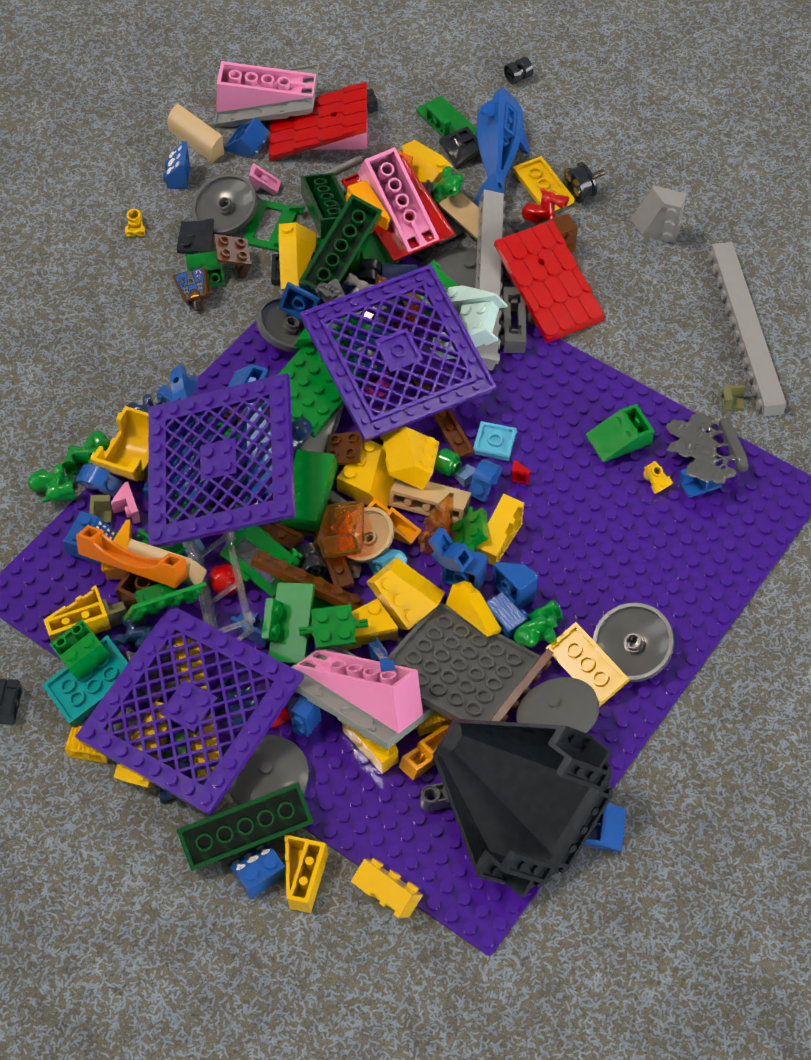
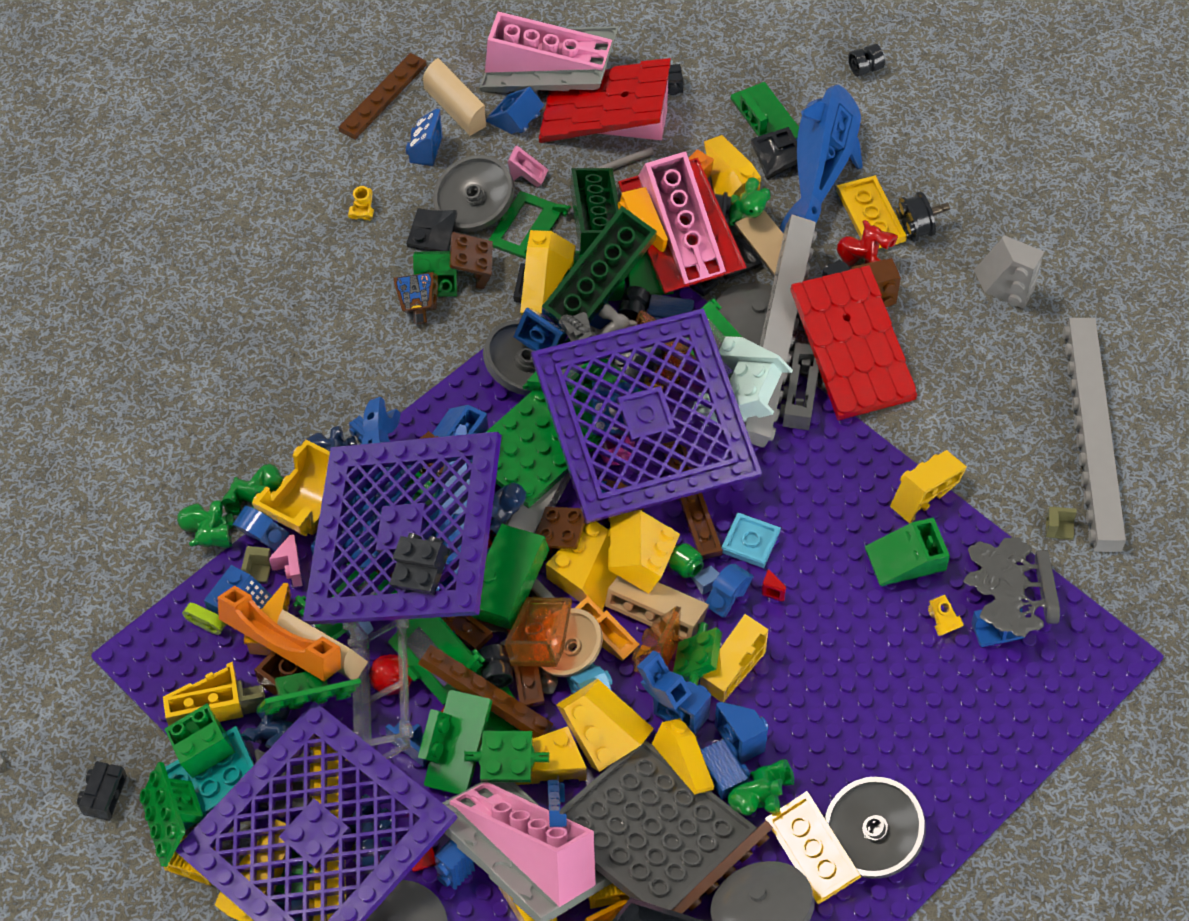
camera: 10 degrees right, 0 degrees up
(62, 708) = (166, 807): none -> green bracket
(64, 556) = (203, 618): none -> lime beam
(135, 139) = (382, 96): none -> reddish brown plate
(239, 484) = (419, 563): none -> black plate
(624, 380) = (925, 483): none -> yellow wedge

